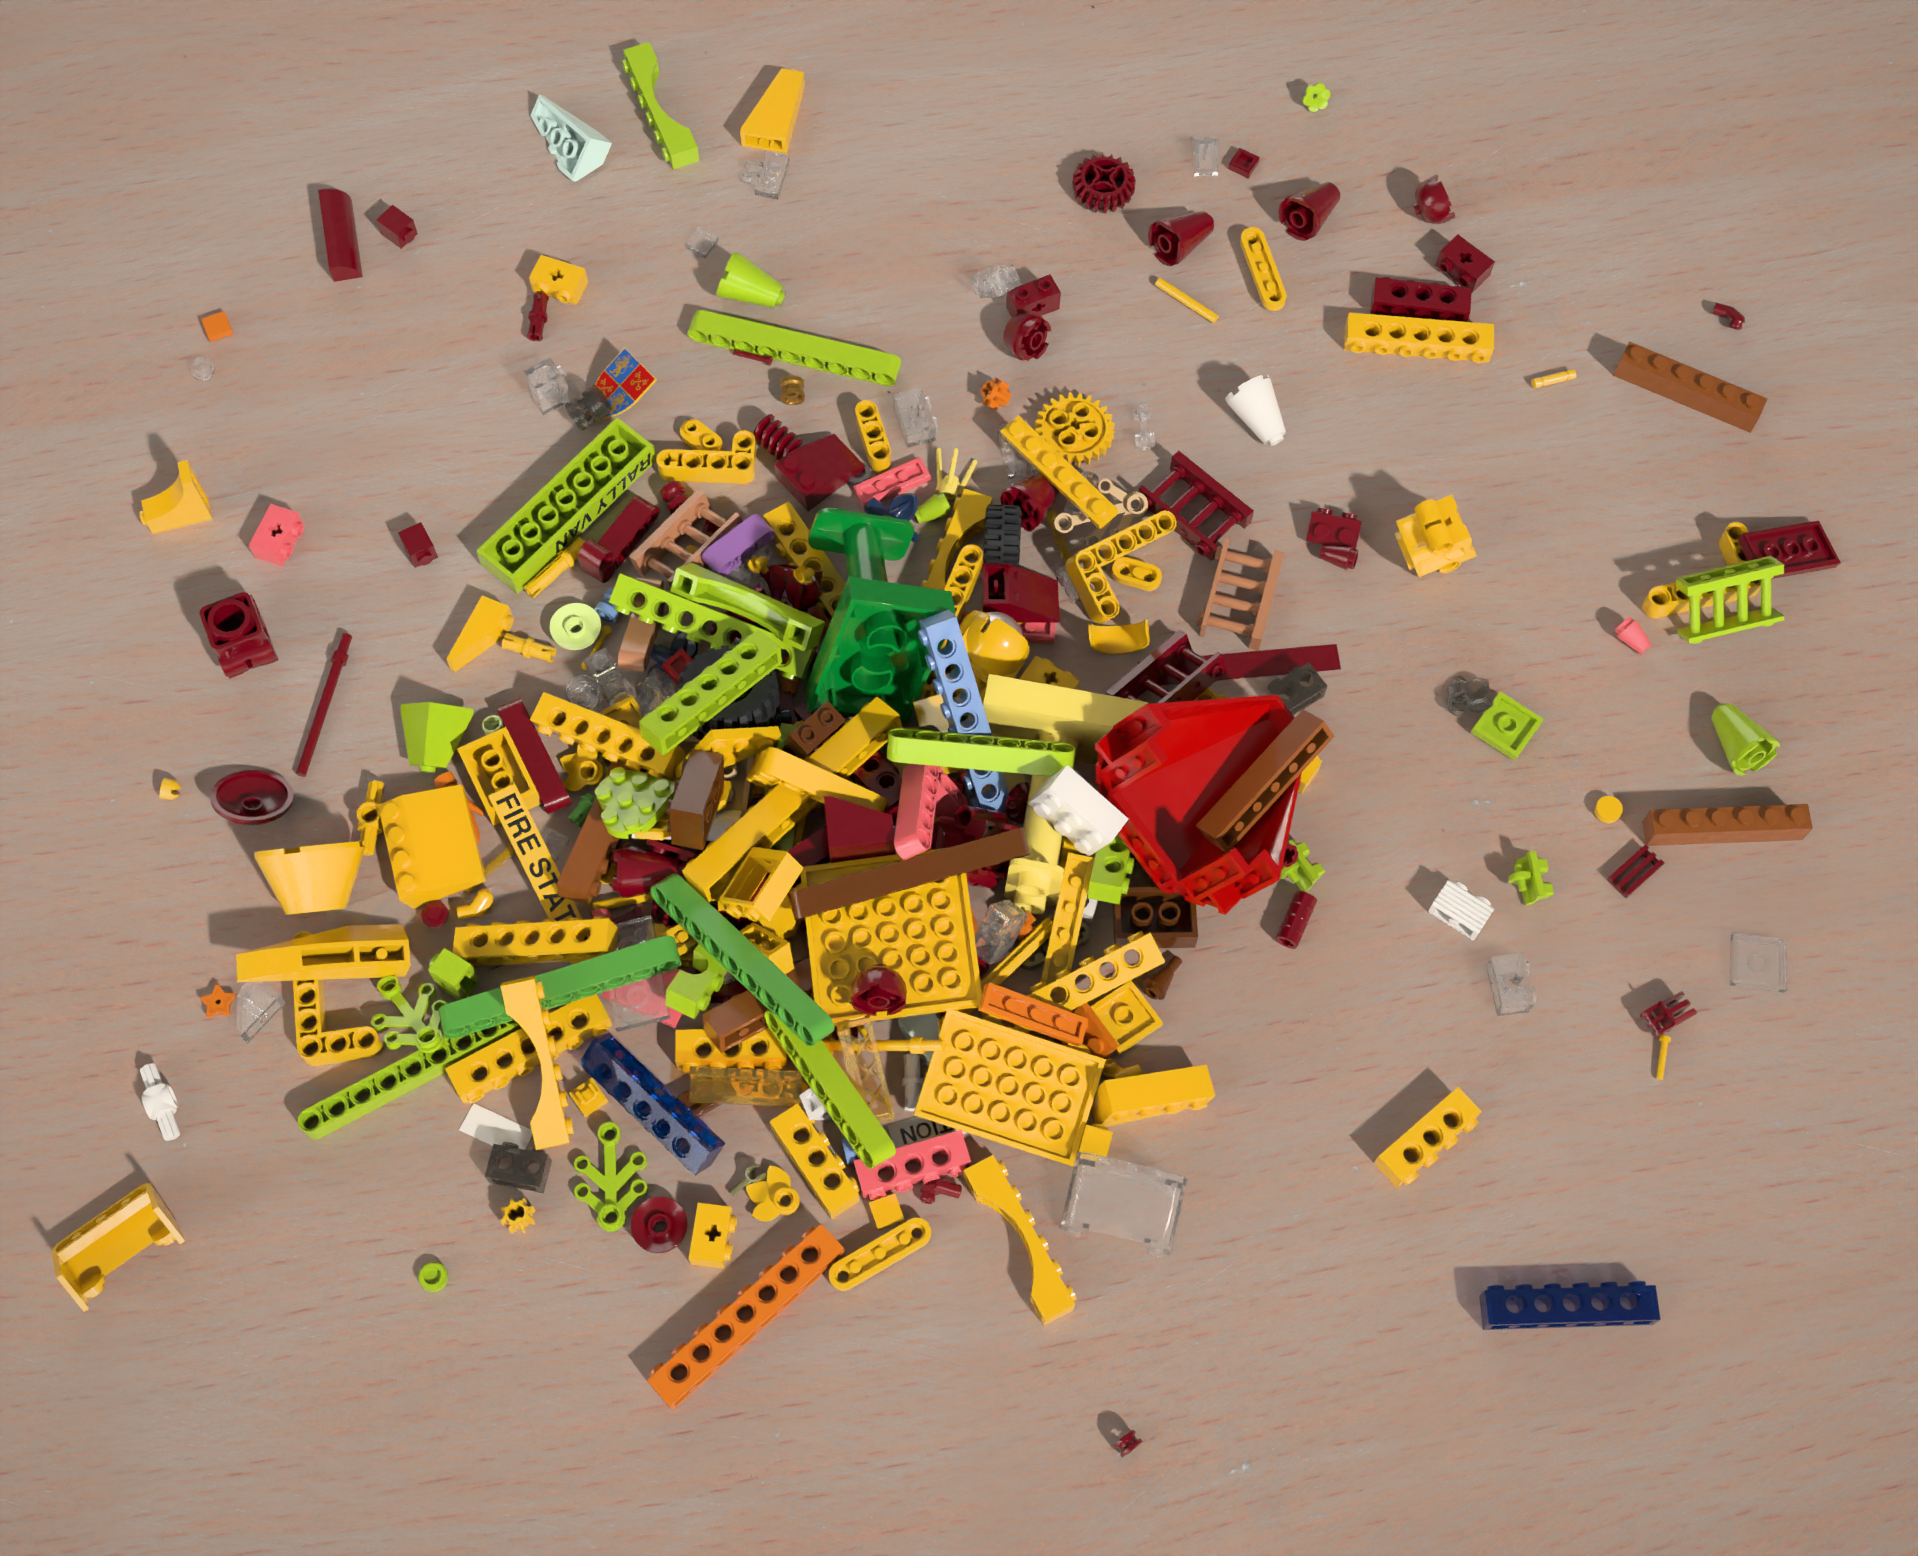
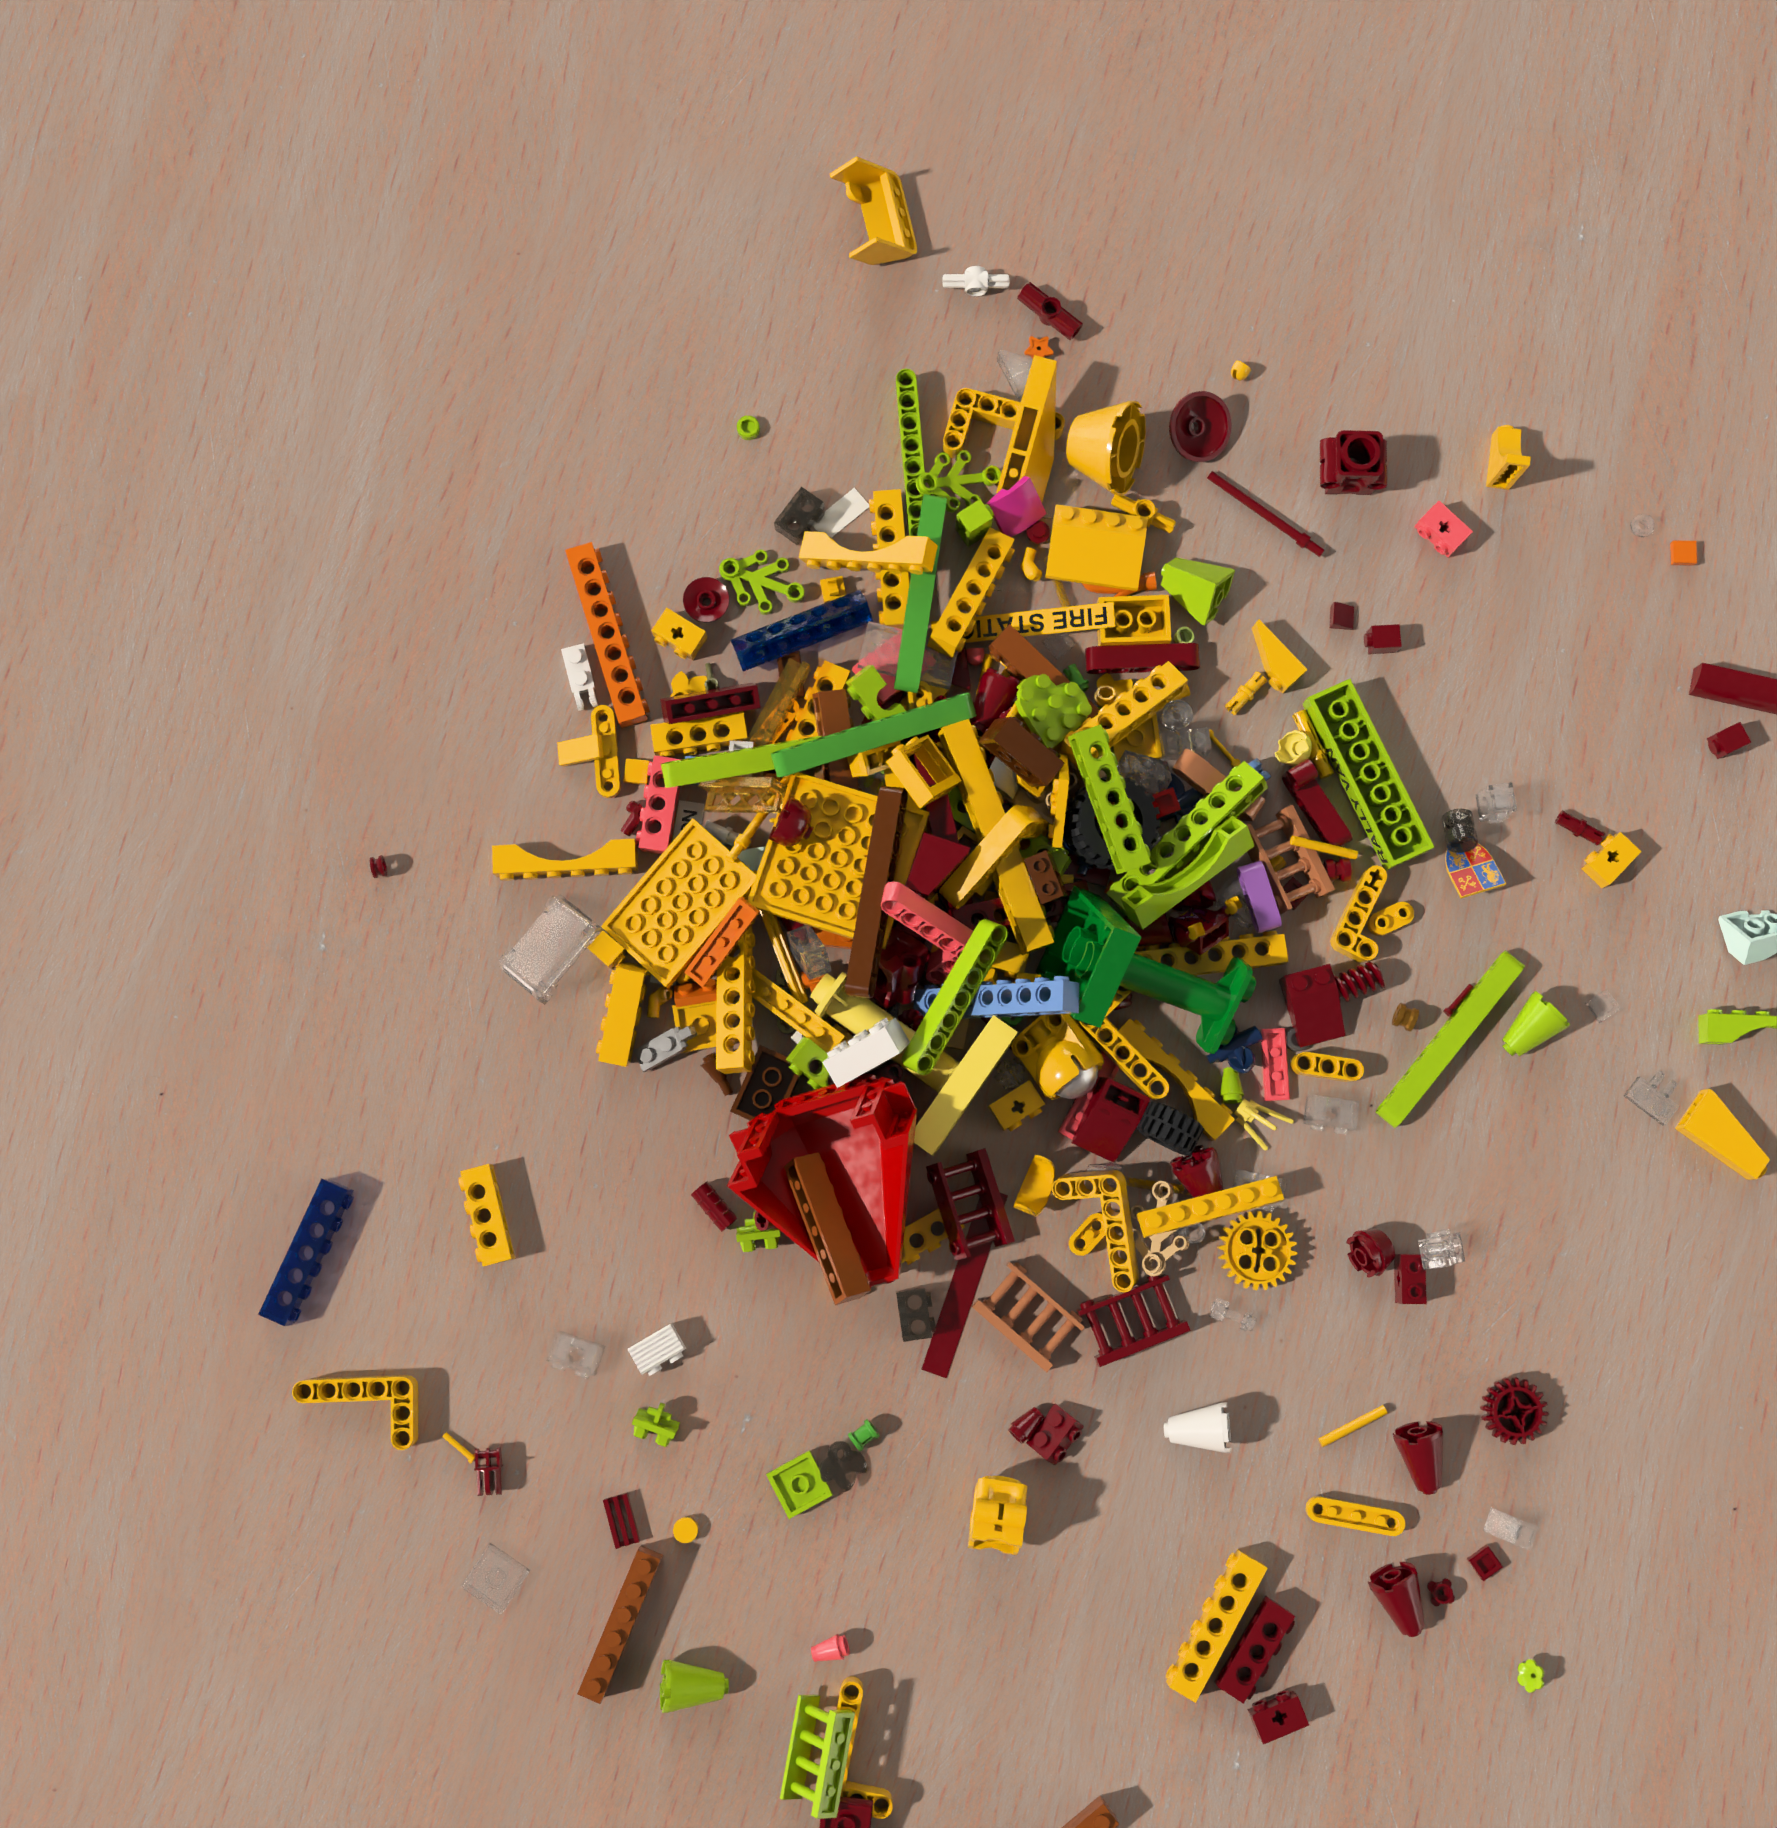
camera: 115 degrees right, 15 degrees up
(163, 1023) = (1039, 302): none -> dark red piece
(408, 594) = (1341, 616): none -> dark red slope
(419, 938) = (1017, 507): none -> dark pink slope
(516, 1208) = (763, 509): yellow gear -> none
(569, 579) = (1294, 748): none -> light yellow hair
(572, 617) = (1255, 729): yellowish green dish -> none
(660, 513) = (1323, 847): none -> yellow bar
(778, 1158) = (710, 703): none -> dark red brick
(805, 1327) = (579, 674): none -> white hinge
(892, 1280) = (580, 750): none -> yellow tile
(995, 393) = (1323, 1196): orange gear -> none
(1165, 1039) = (664, 1047): none -> light grey hinge
(1287, 179) = (1446, 1597): none -> dark red plate
(1430, 689) = (863, 1435): none -> bright green bush
(1433, 201) = (1358, 1723): dark red cylinder -> none
(1553, 378) = (1119, 1733): yellow wheel -> none
(1671, 1171) = (368, 1393): none -> yellow beam

